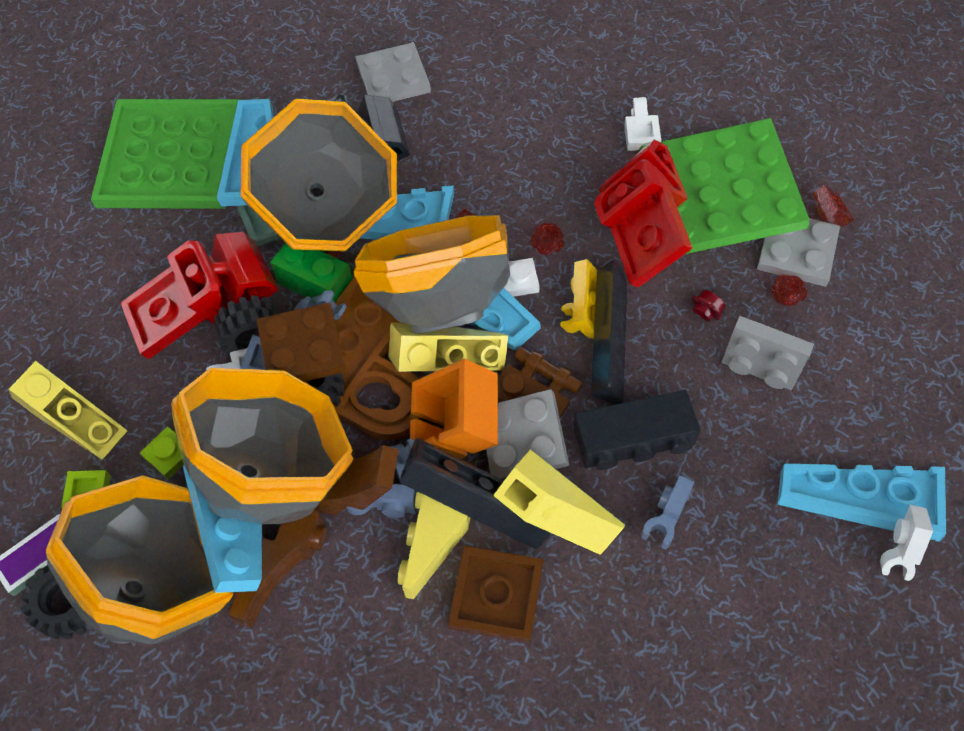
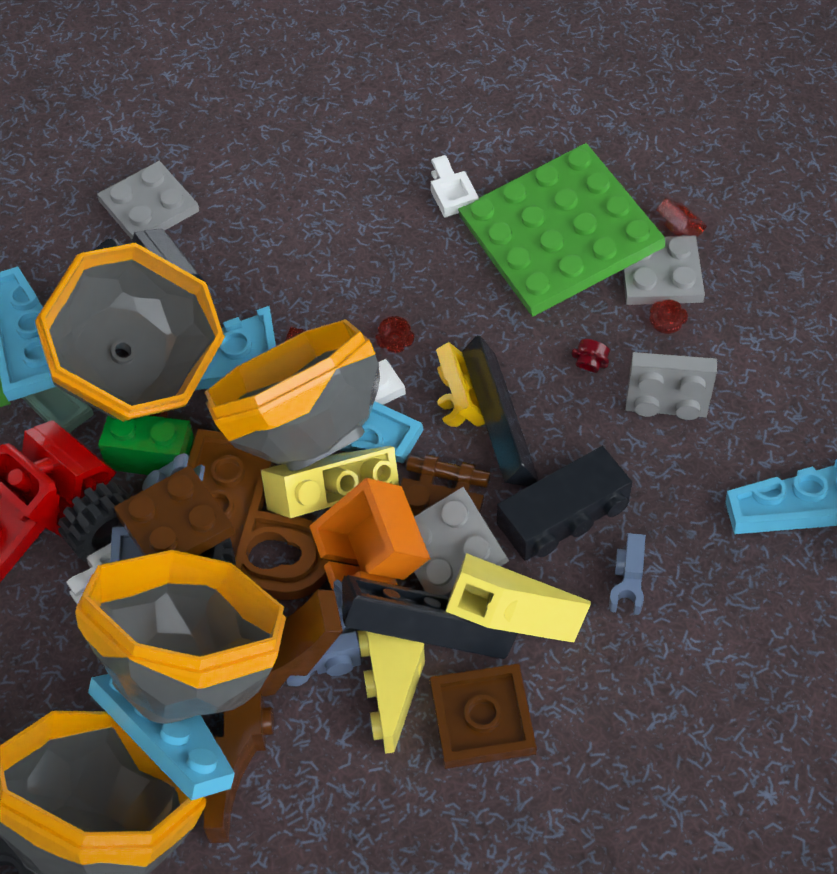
camera: 20 degrees left, 5 degrees down
(164, 453) = (54, 688): lime plate -> none
(643, 213) = (488, 274): red piece -> none

